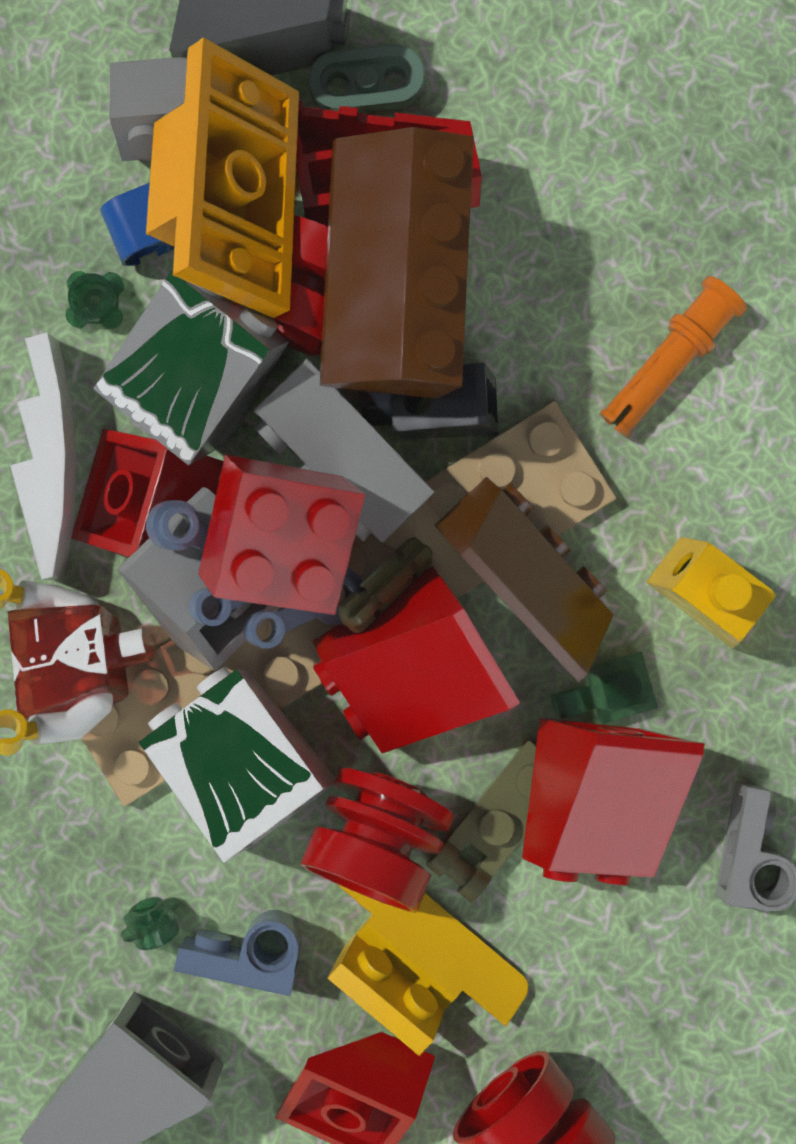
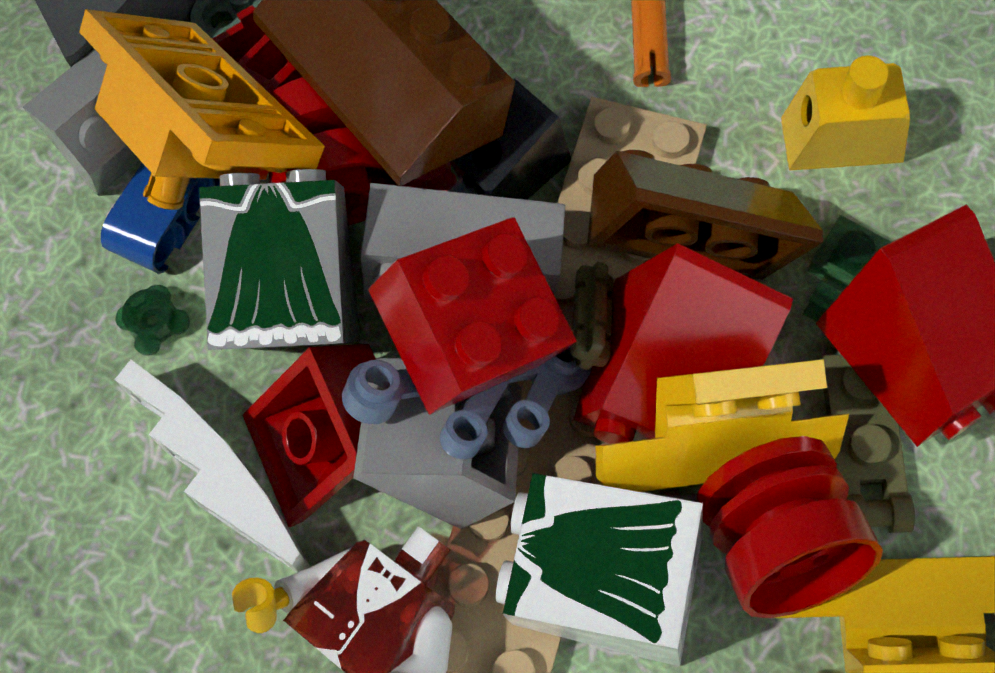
camera: 30 degrees left, 20 degrees down
(396, 740) = (714, 419): none -> yellow plate

